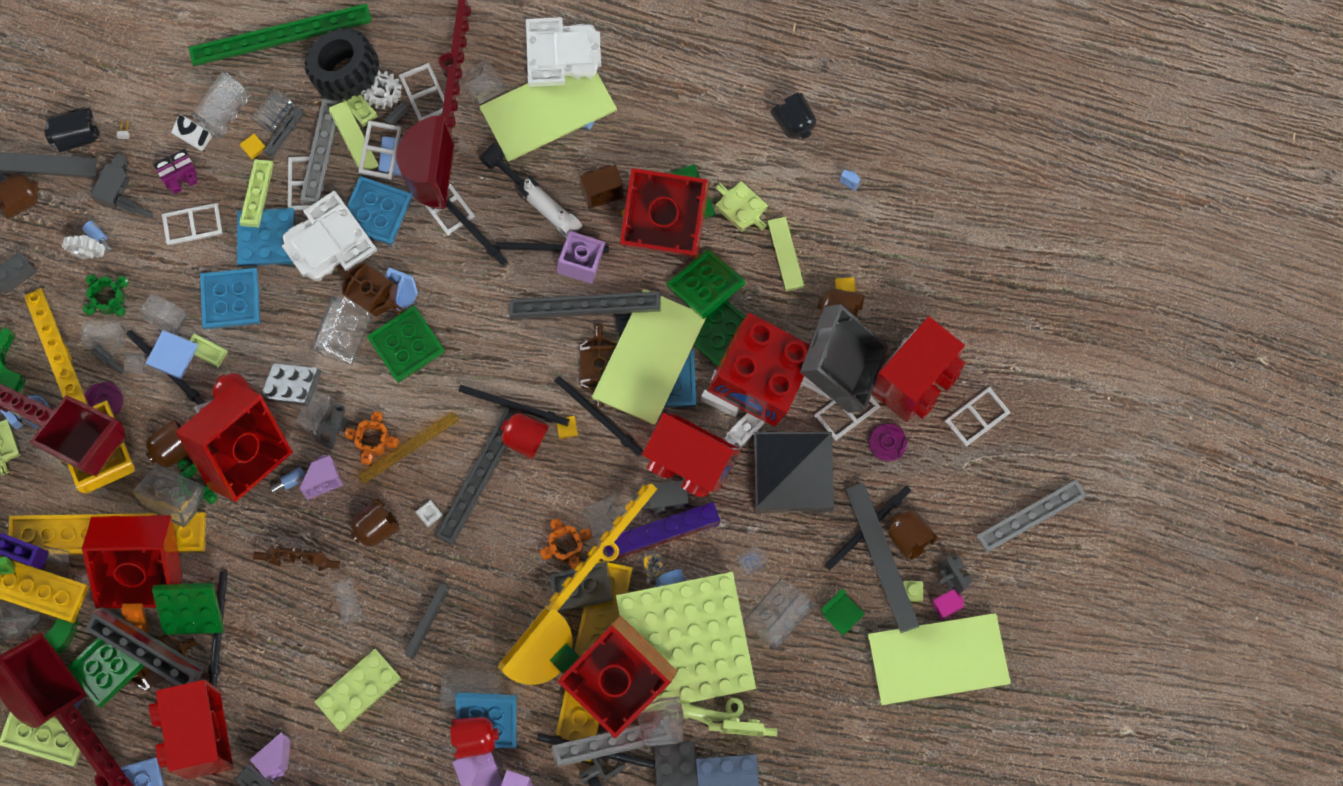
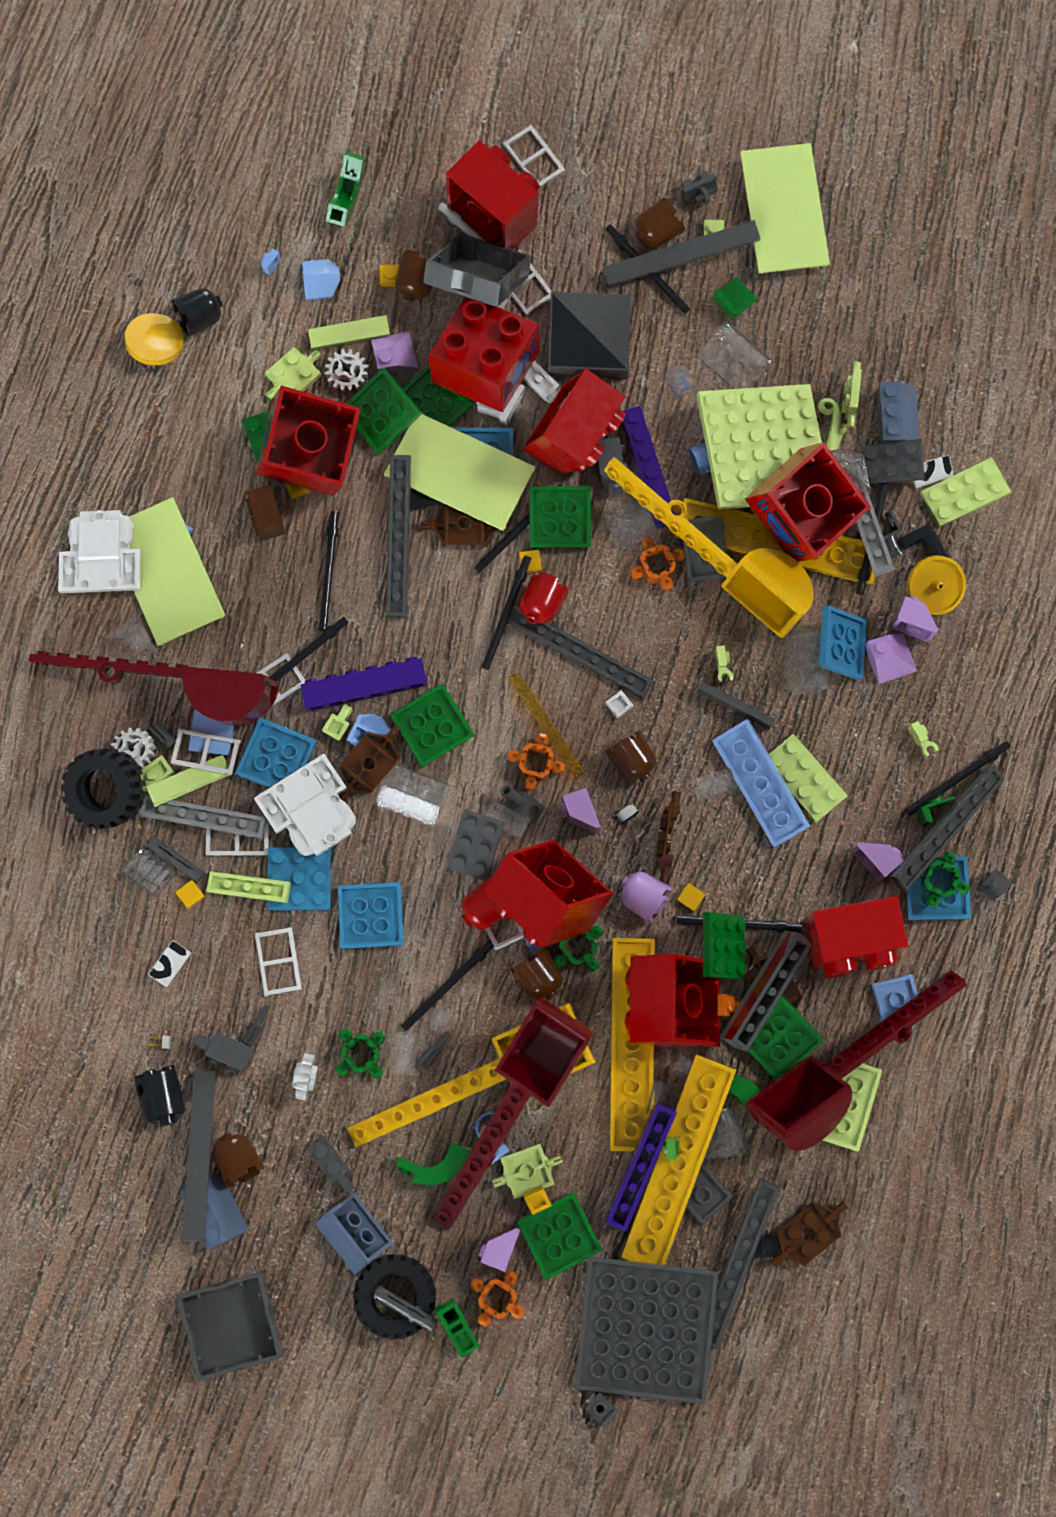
camera: 90 degrees left, 5 degrees up
(93, 231) = (286, 1067): light blue piece -> none
(105, 391) = (478, 1051): magenta tile -> none
(163, 313) = (385, 988): clear brick -> none
(169, 494) = (595, 972): clear slope -> none
(171, 354) = (434, 977): light blue tile -> none
(185, 170) = (214, 979): magenta hips -> none
(208, 351) = (428, 942): yellowish green tile -> none
(220, 105) = (142, 925): clear slope -> none
(242, 538) = (644, 895): none -> lavender cylinder
(244, 585) = (690, 897): none -> yellow tile
(279, 35) = (56, 864): green plate -> none
(289, 480) = (578, 848): light blue piece -> none
(324, 524) = (627, 813): none -> white piece
(350, 646) = (761, 783): none -> light blue plate
(406, 260) = (337, 725): none -> yellowish green plate
(422, 93) = (141, 719): white window -> none
(443, 282) = (364, 684): none -> dark purple brick
(471, 607) = (722, 660): none -> yellowish green plate
(473, 736) = (863, 651): red cylinder -> none
(532, 193) = (263, 591): white piece -> none
(564, 658) = (786, 557): green sticker -> none
(580, 257) = (344, 538): lavender slope -> none
(608, 450) = (560, 516): none -> green plate
(652, 565) = (683, 478): clear brick -> none
(742, 244) = (342, 378): none -> white gear
(766, 82) = (154, 339): none -> yellow piece
(766, 294) = (395, 353): none -> lavender slope
(837, 224) = (320, 279): none -> light blue slope
(887, 442) = (558, 244): magenta tile -> none
(921, 243) = (348, 190): none -> green arch
(948, 604) = (729, 197): dark pink brick -> none
(1031, 516) = (641, 112): light grey plate -> none

